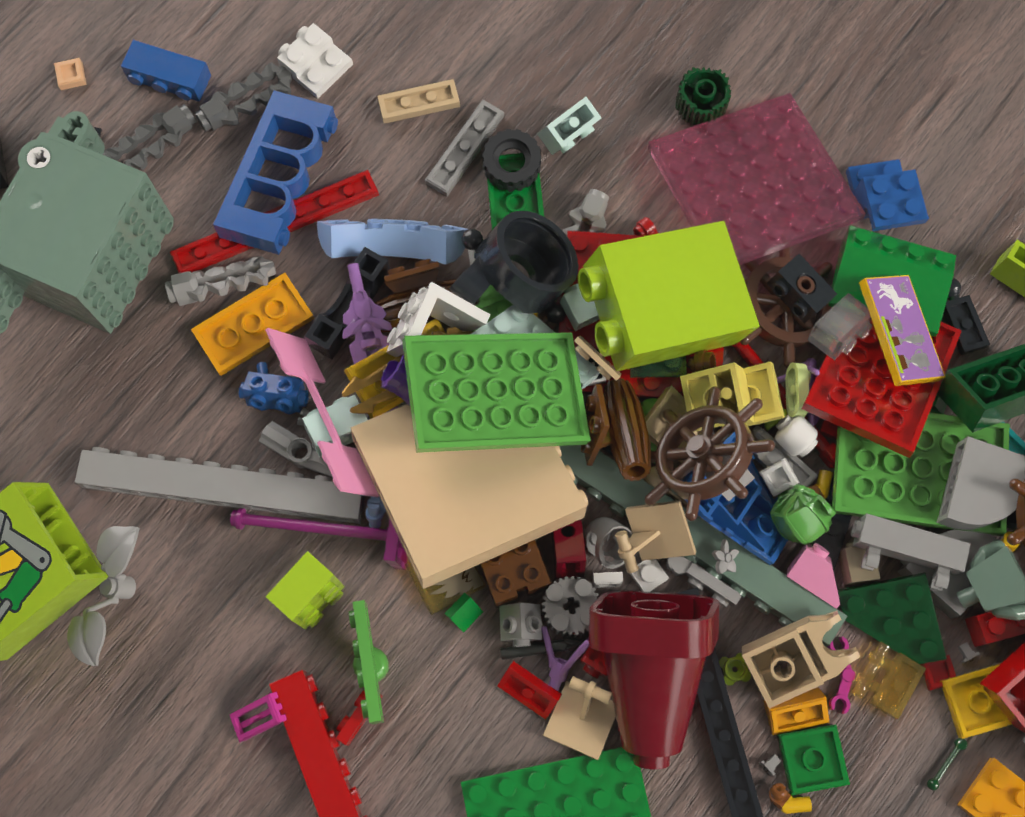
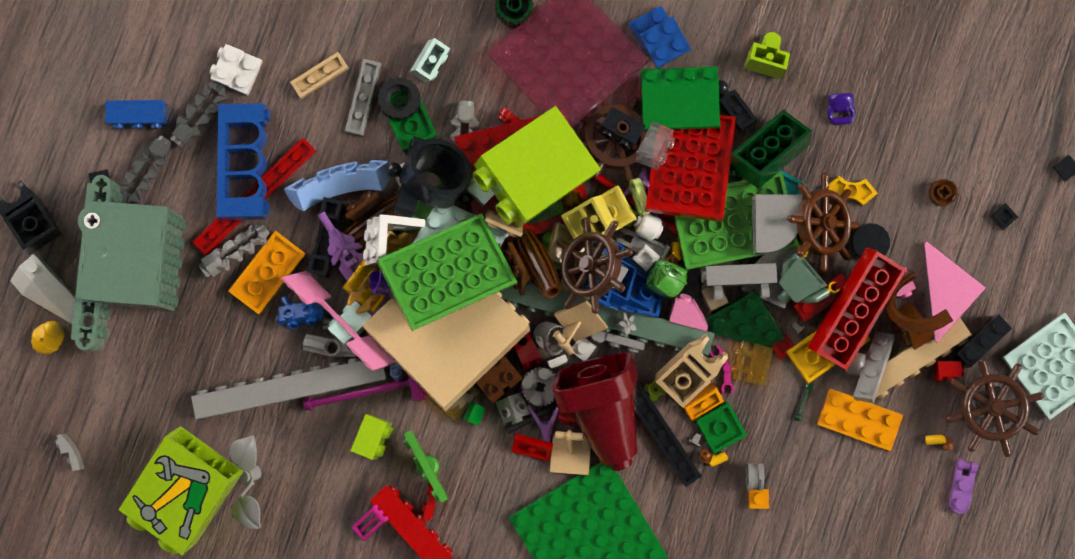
camera: 20 degrees left, 10 degrees up
(70, 74) = (69, 137): light nougat tile -> none
(901, 330) = (694, 135): tile -> none

